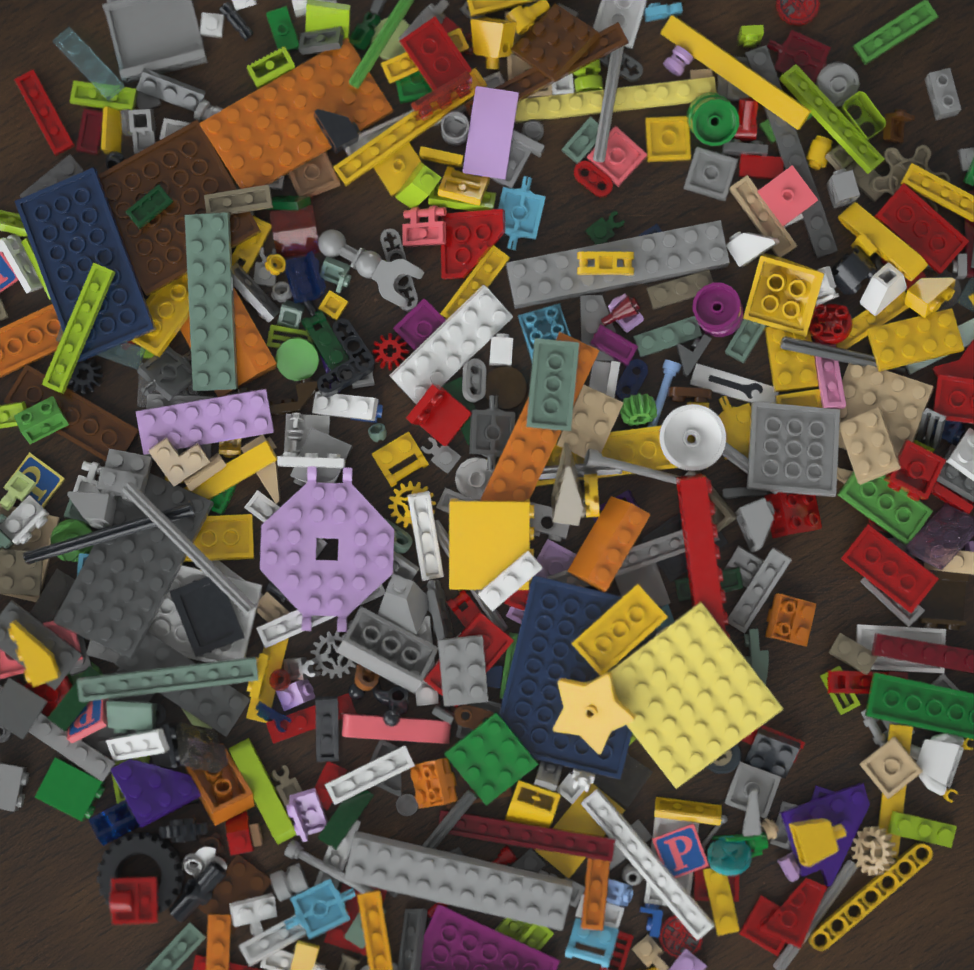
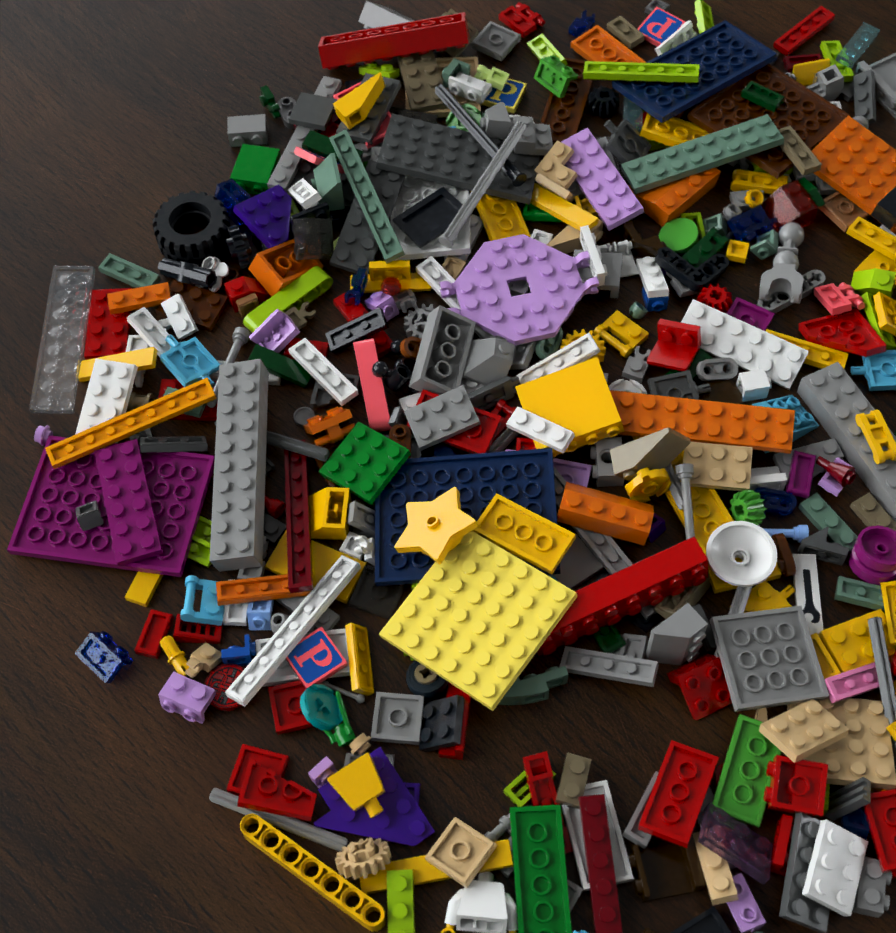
camera: 75 degrees right, 25 degrees down
(134, 900) = (166, 214): red plate -> none
(254, 294) = (722, 188): flat silver plate -> none
(289, 882) = (211, 337): light grey wheel -> none
(552, 384) = (742, 411): sand green plate -> none
(721, 902) = (270, 712): yellow plate -> none
(752, 816) = (370, 717): light grey slope -> none
(790, 619) = (588, 709): orange plate -> none

